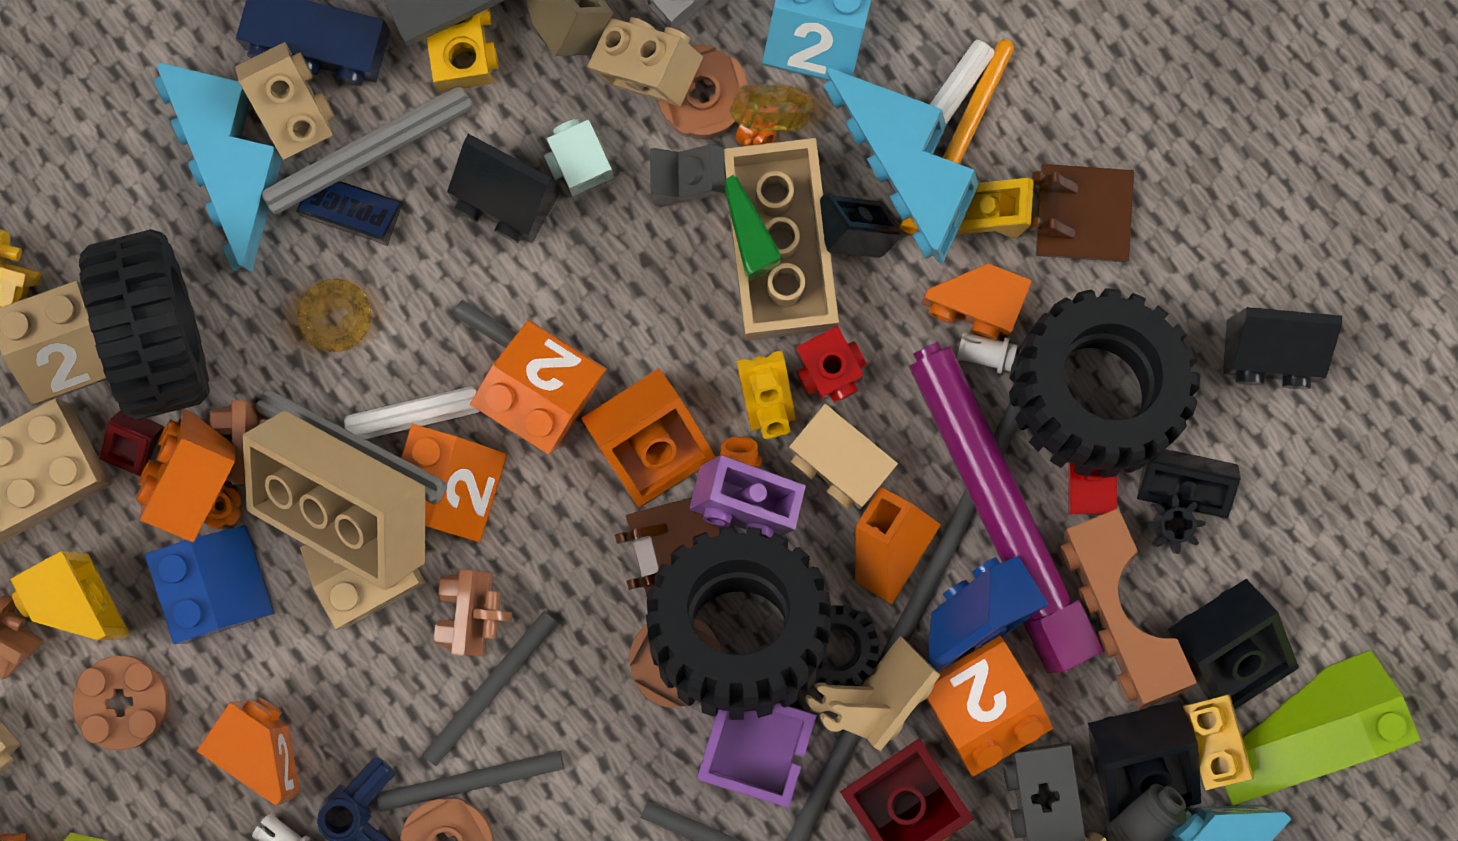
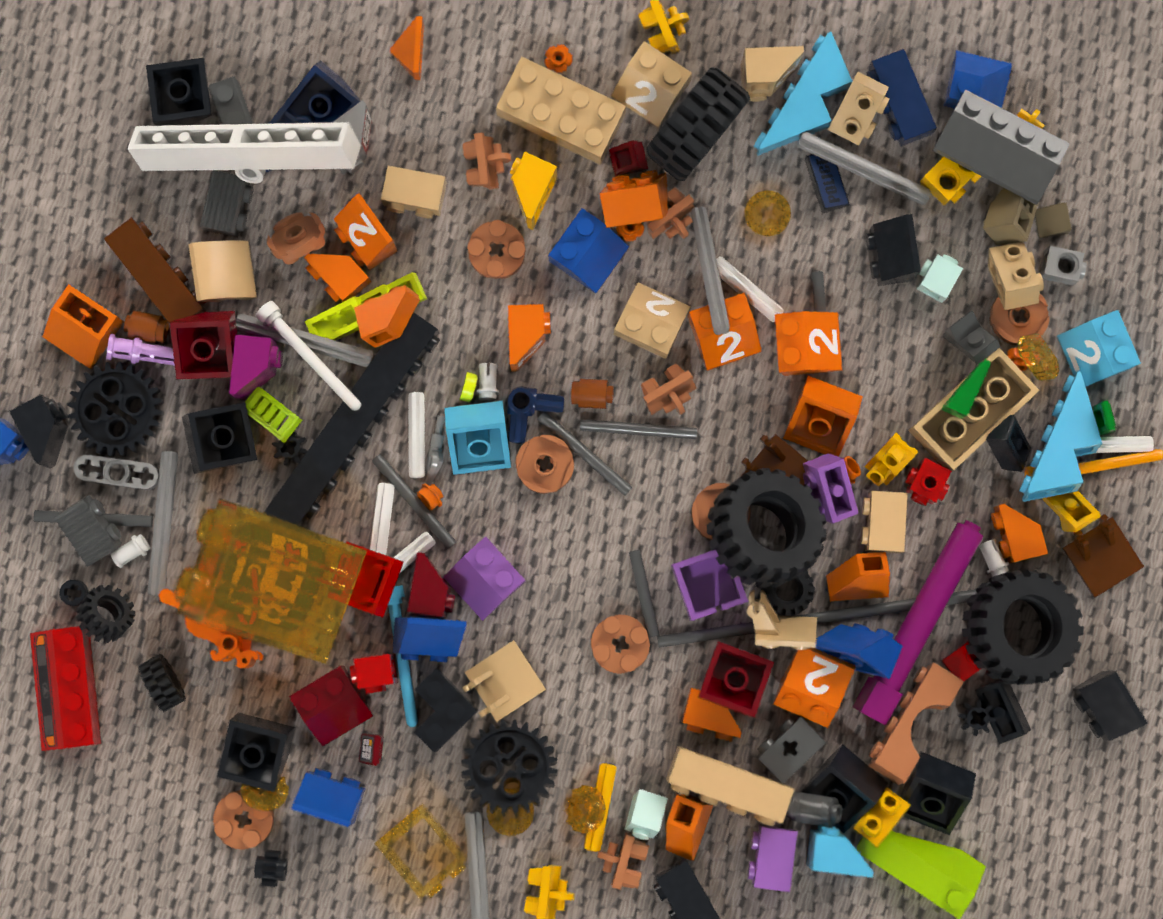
camera: 50 degrees right, 0 degrees up
(147, 177) = (767, 69): none -> tan slope
(335, 499) = (680, 282): tan brick -> none
(399, 715) = (592, 393): none -> dark orange brick
(910, 81) = (1104, 417): none -> green slope

